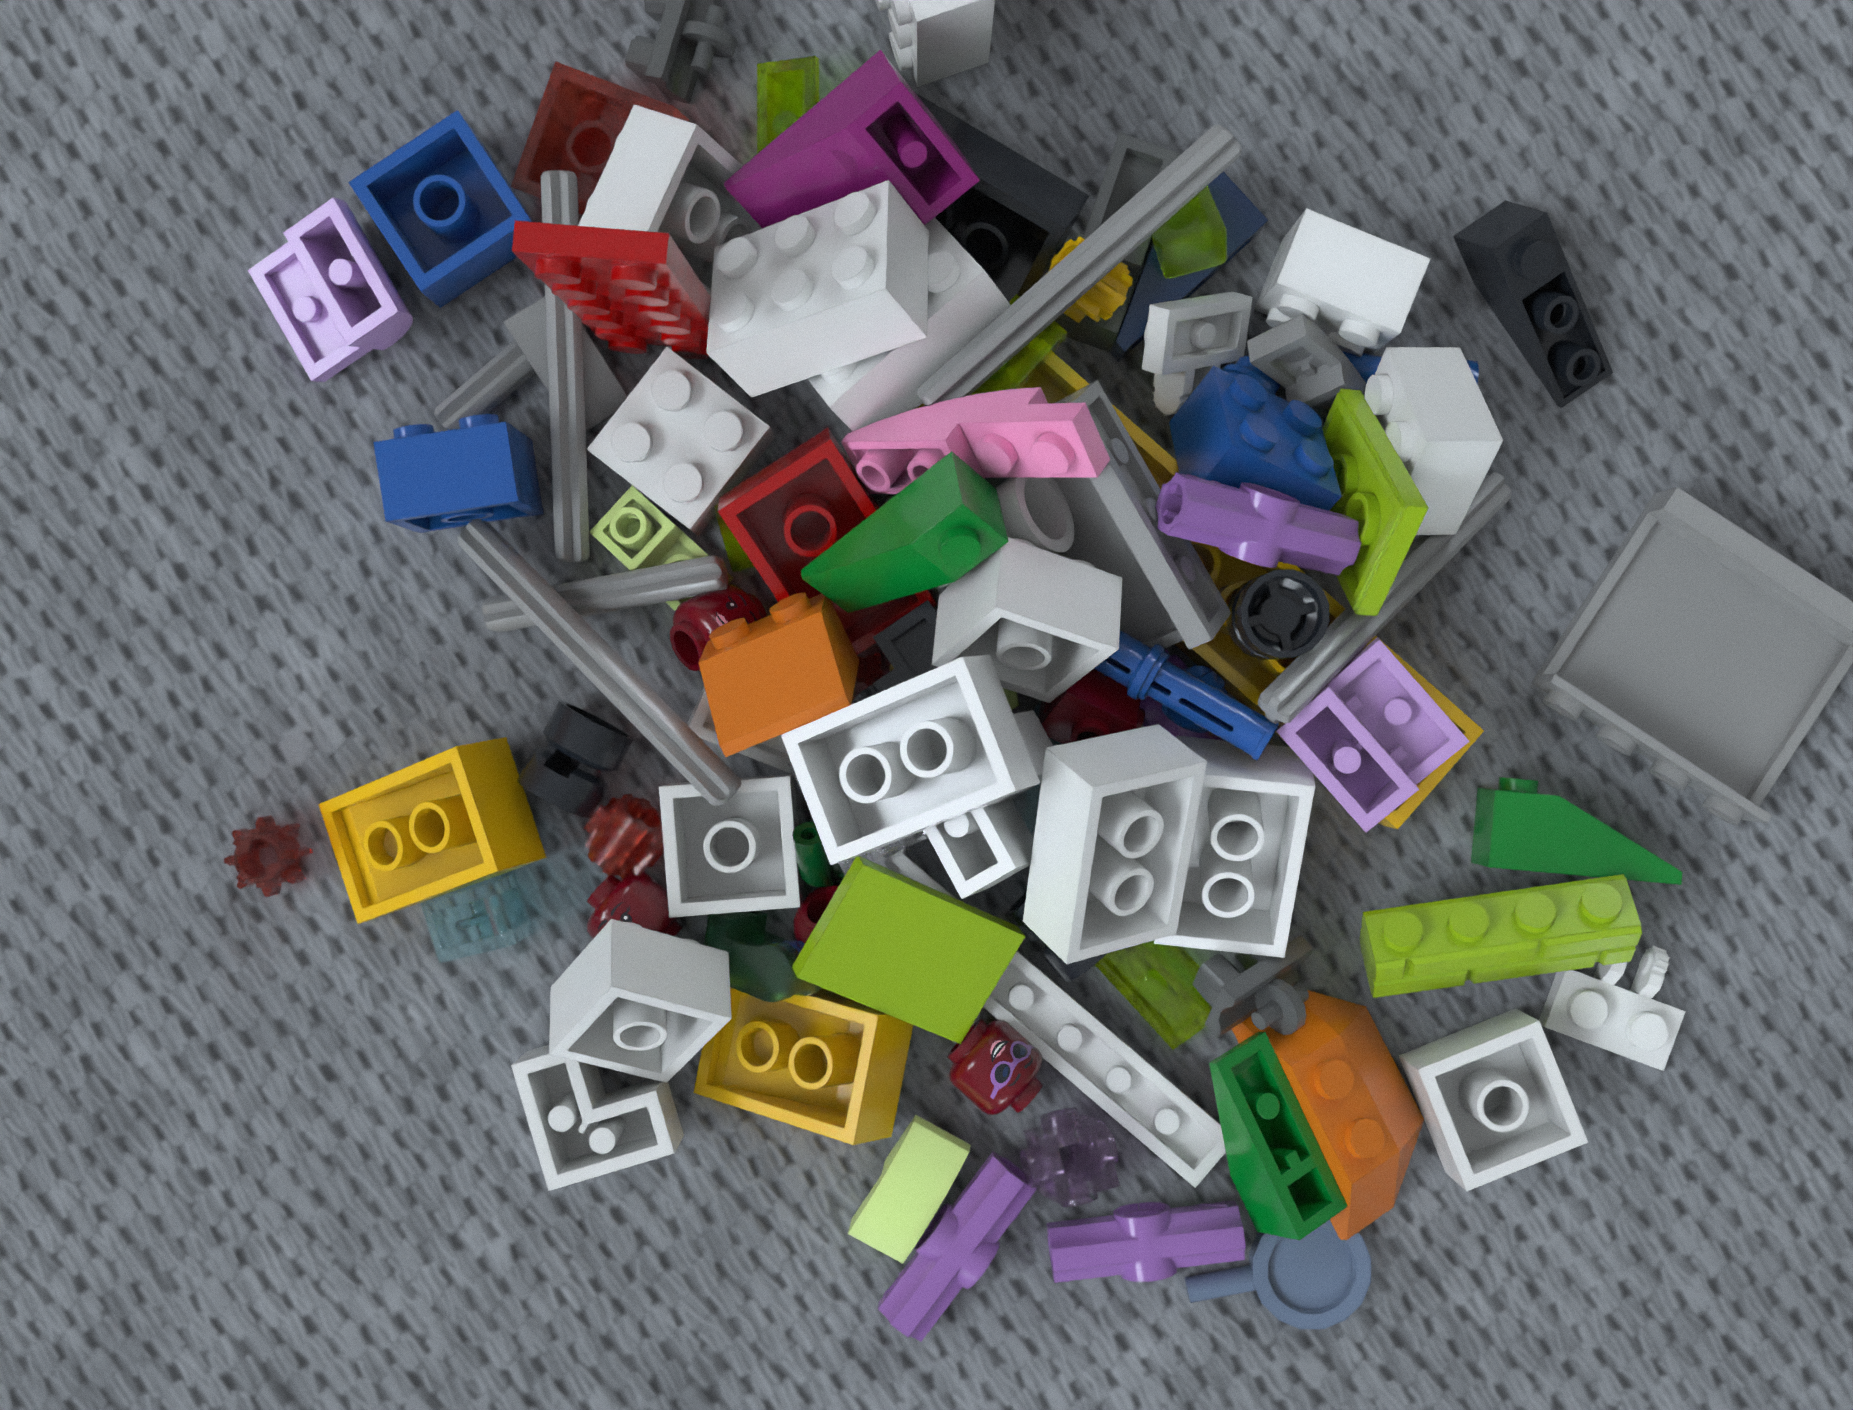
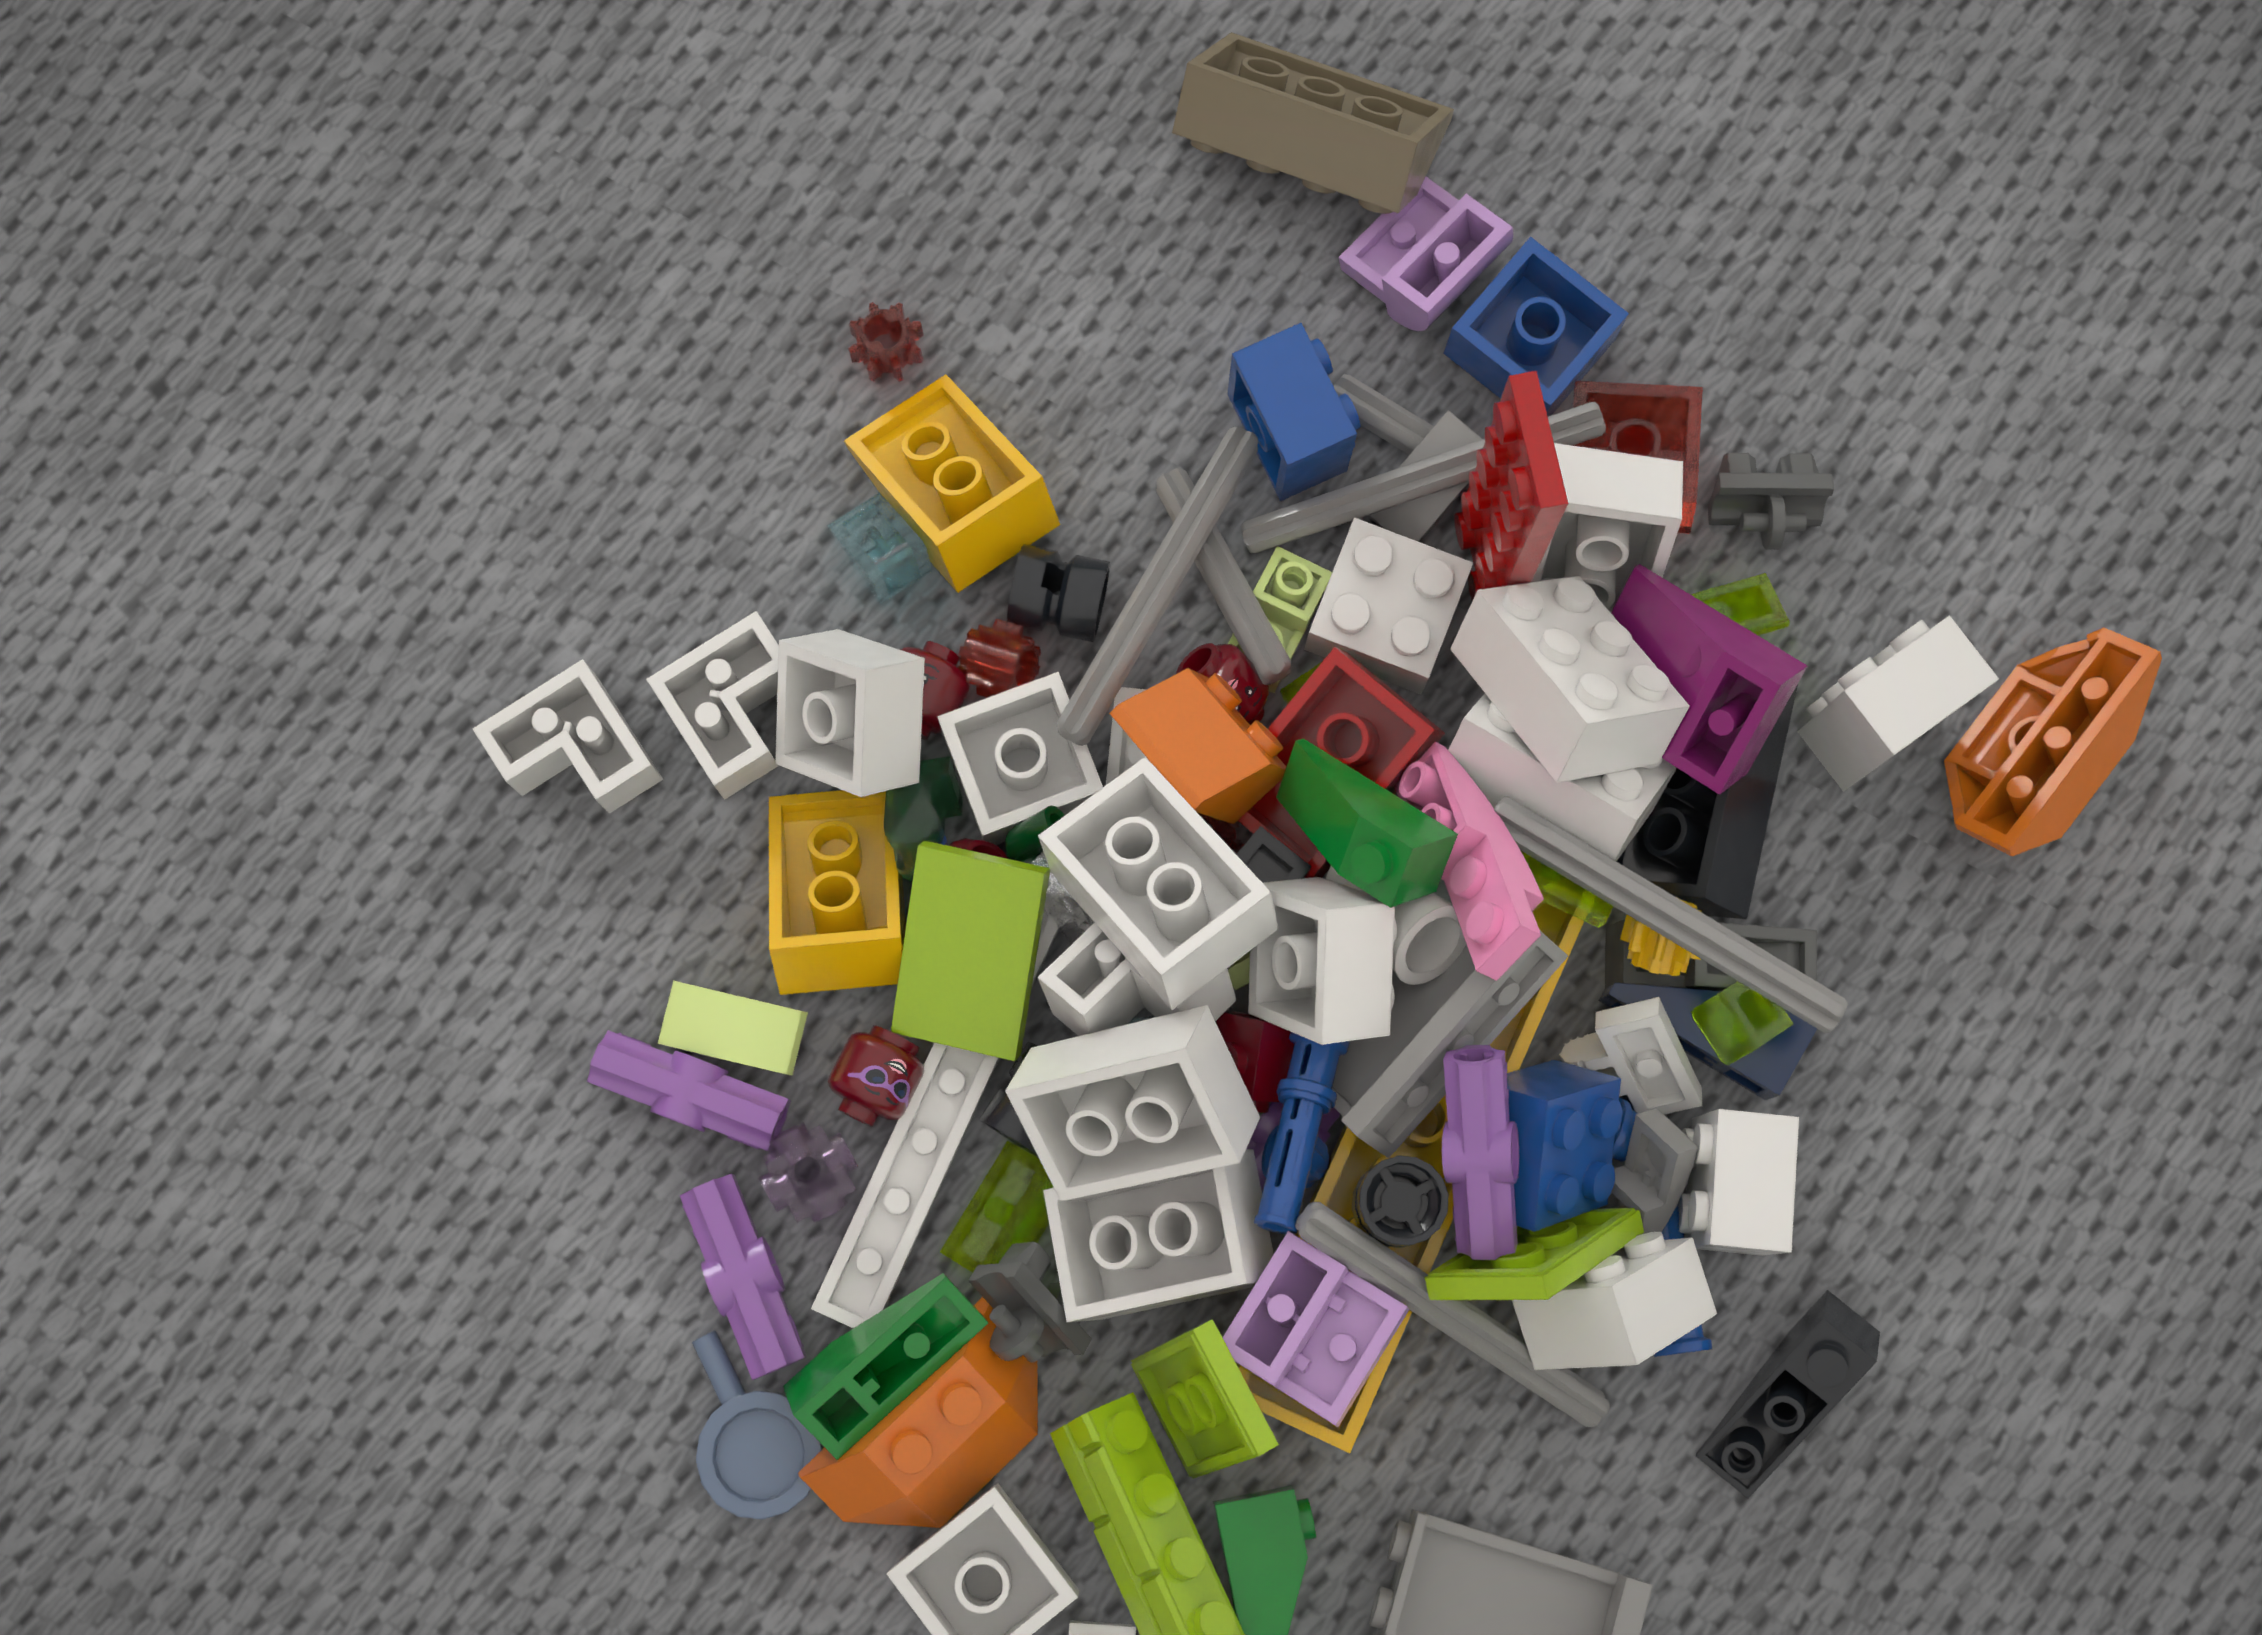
camera: 75 degrees right, 10 degrees down
(160, 366) = (1310, 122): none -> dark tan slope
(570, 1272) = (566, 725): none -> white brick
(1399, 852) = (1203, 1401): none -> lime tile

